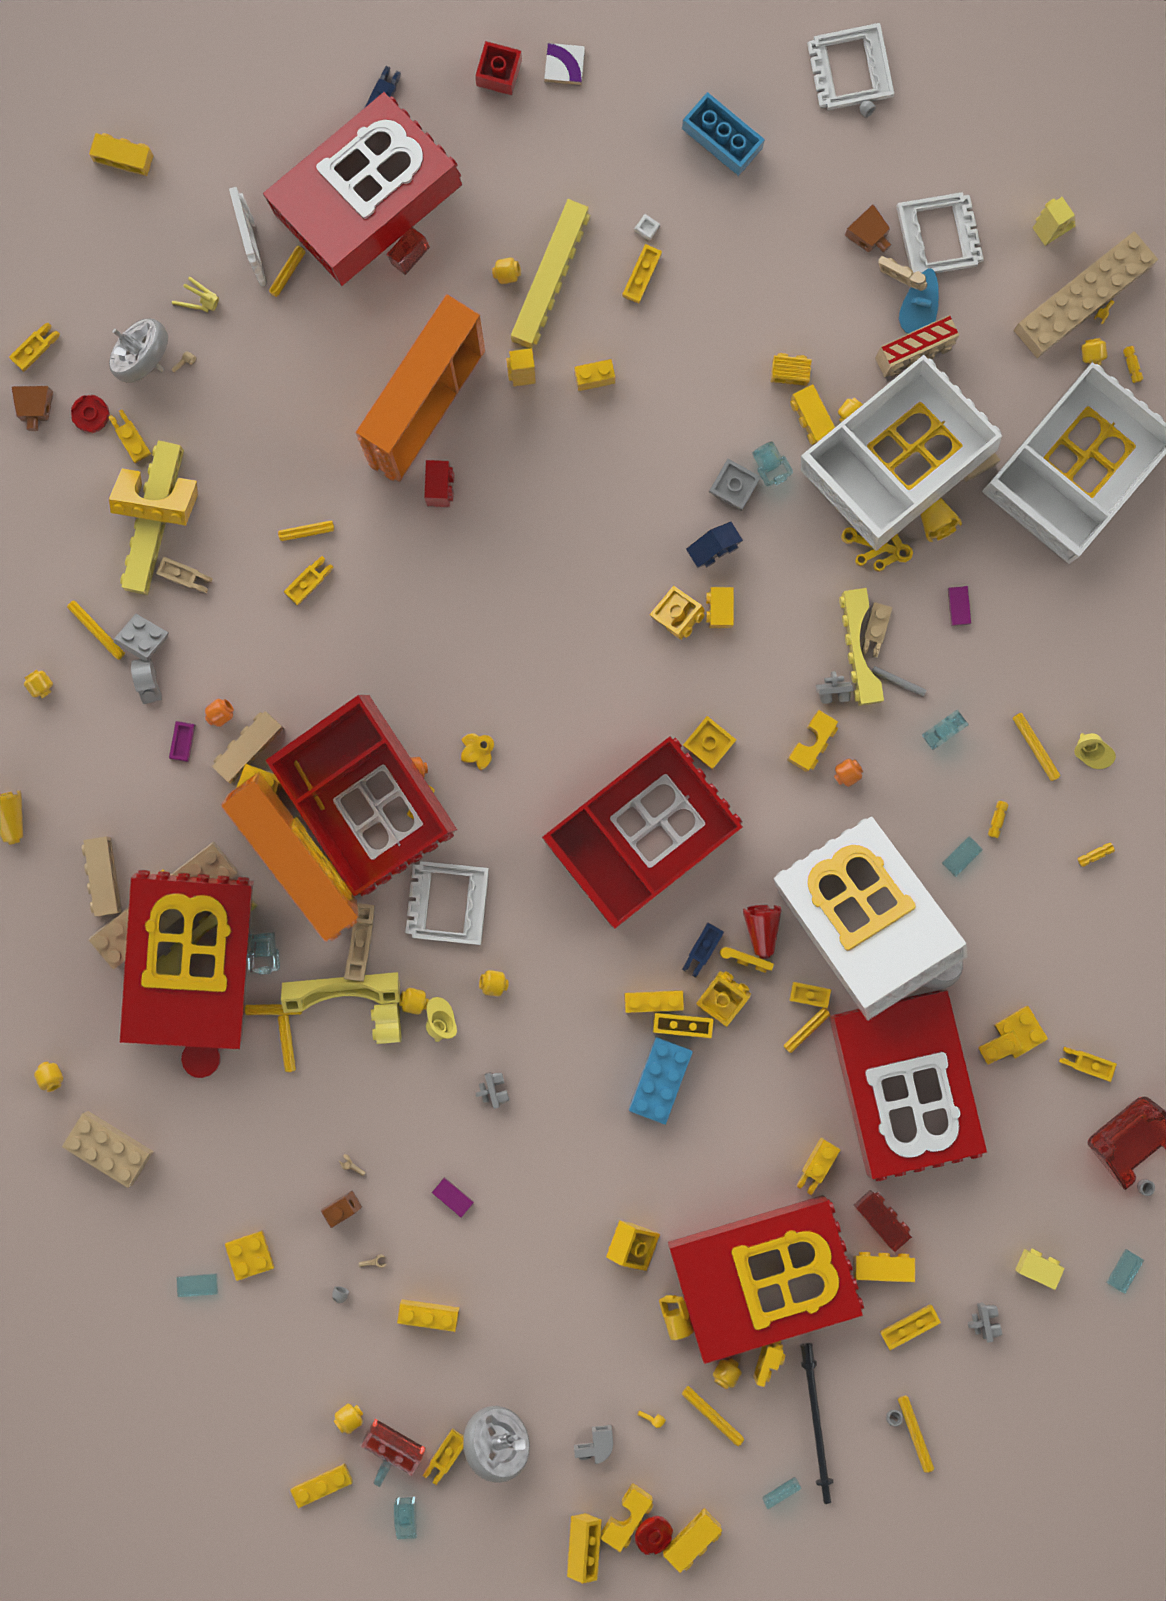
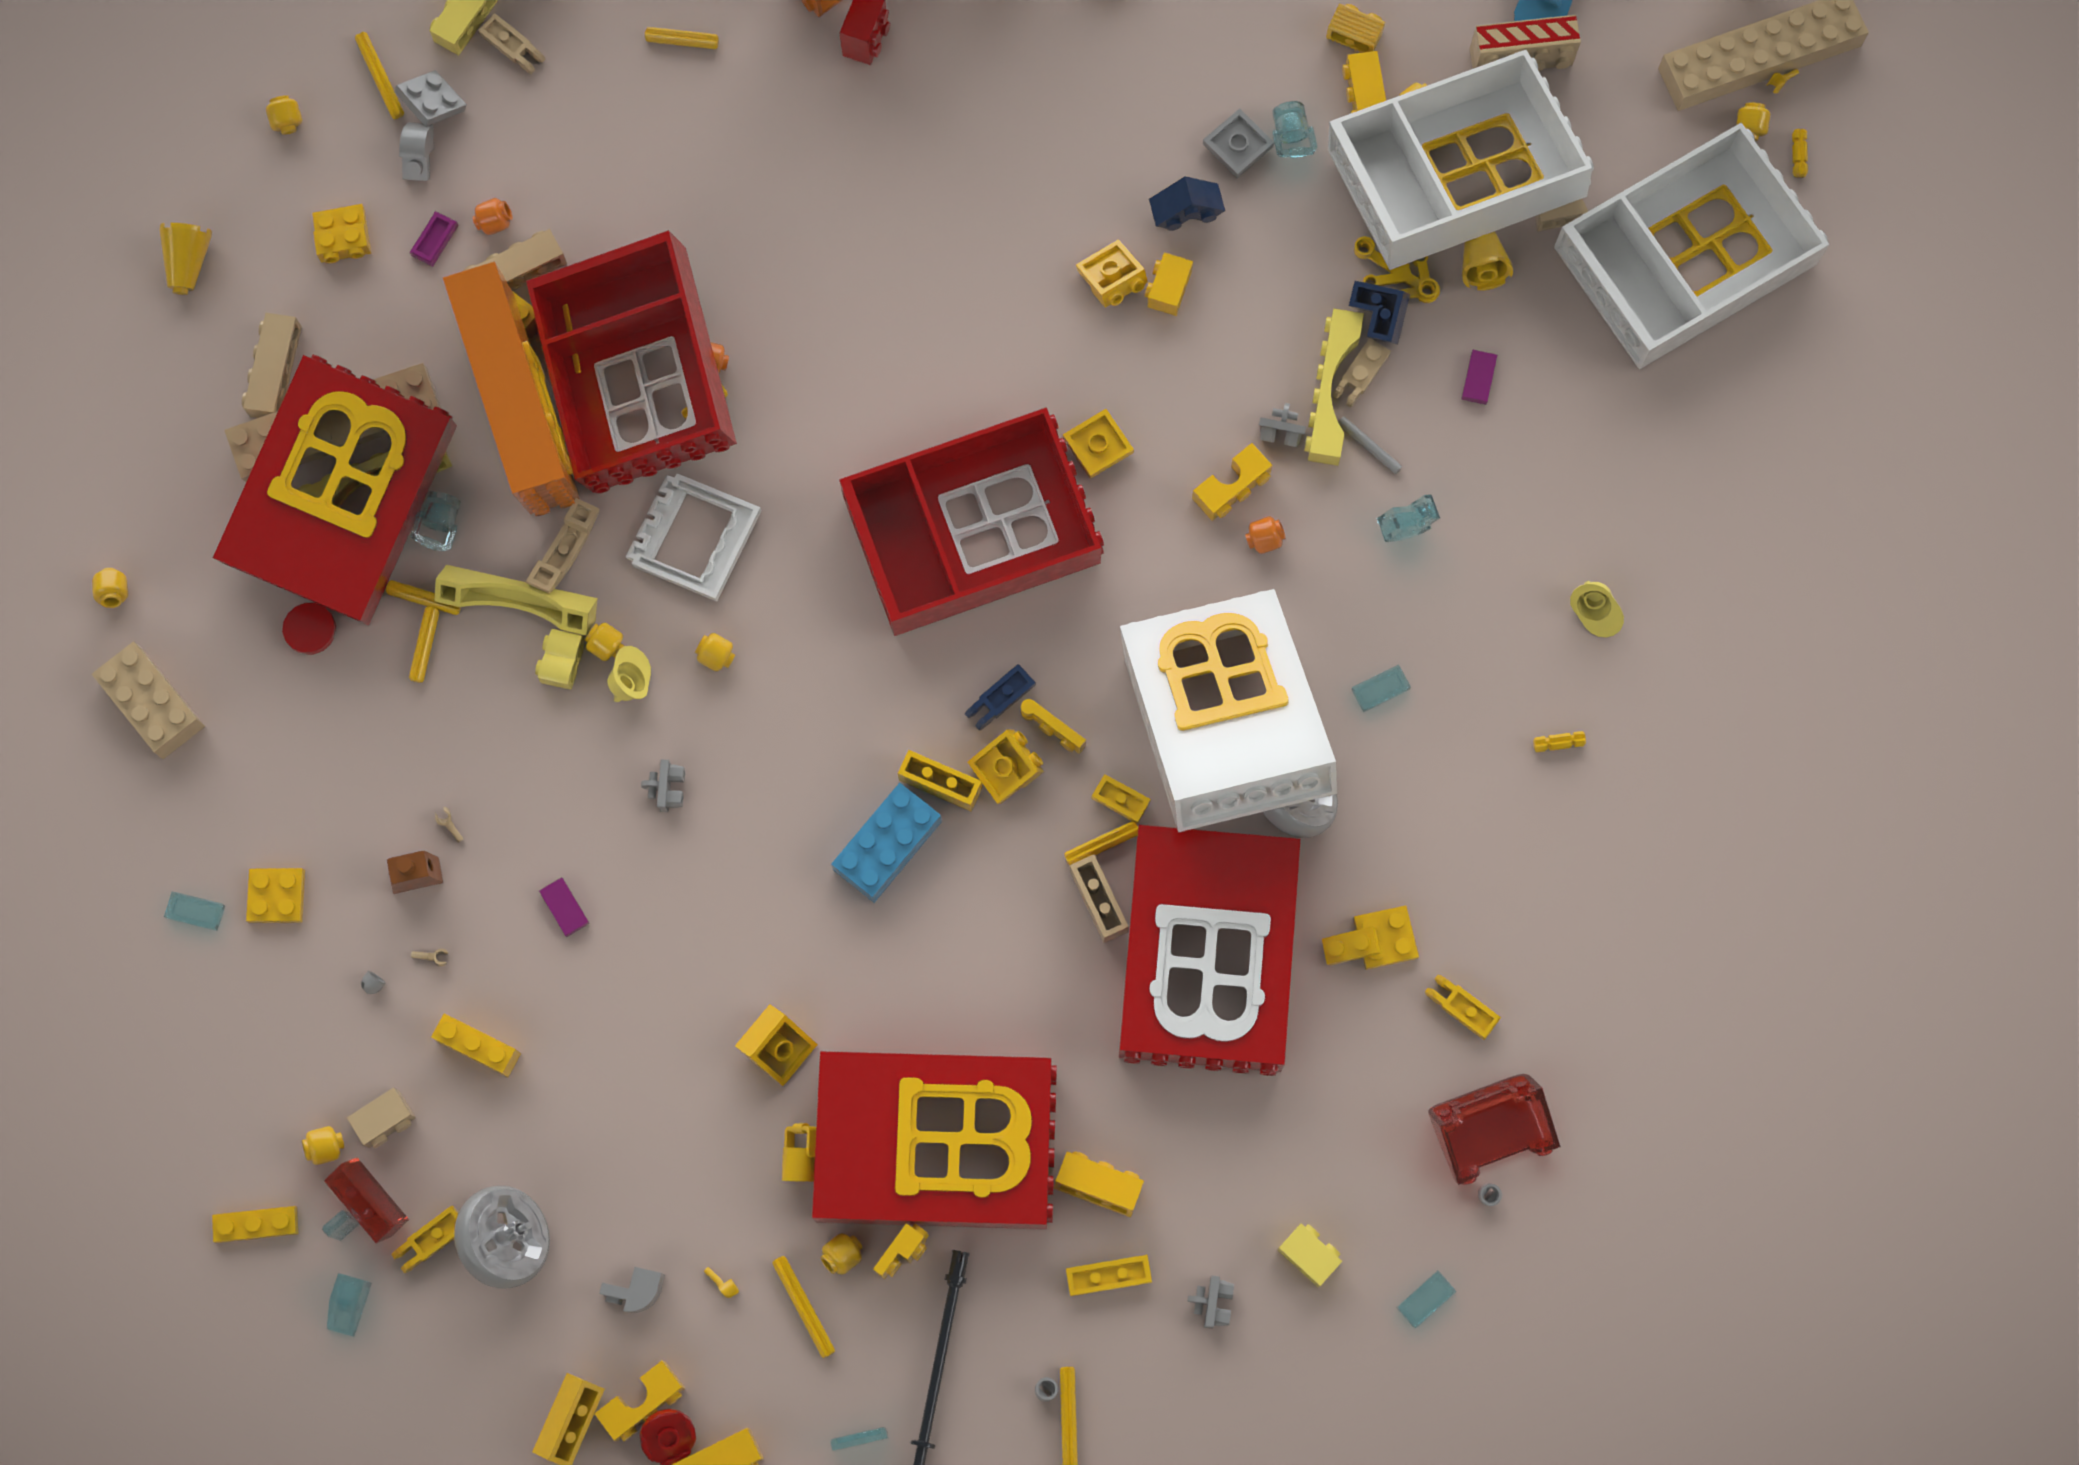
camera: 25 degrees right, 10 degrees down
(113, 759) = (341, 233): none -> yellow plate
(307, 581) = (661, 96): yellow hinge -> none
(381, 1386) = (381, 1118): none -> tan brick
(475, 751) = (796, 362): yellow plate -> none
(653, 1001) = (901, 735): yellow brick -> none
(763, 928) = (1087, 693): red cone -> none
(818, 1164) = (1058, 1017): yellow hinge -> none
(819, 1072) = (1099, 898): none -> tan brick
(881, 577) = (1387, 309): none -> dark blue brick
(883, 1220) = (1119, 1120): clear red brick -> none
(998, 819) = (1443, 656): yellow axle -> none
(1036, 746) = (1523, 581): yellow axle -> none

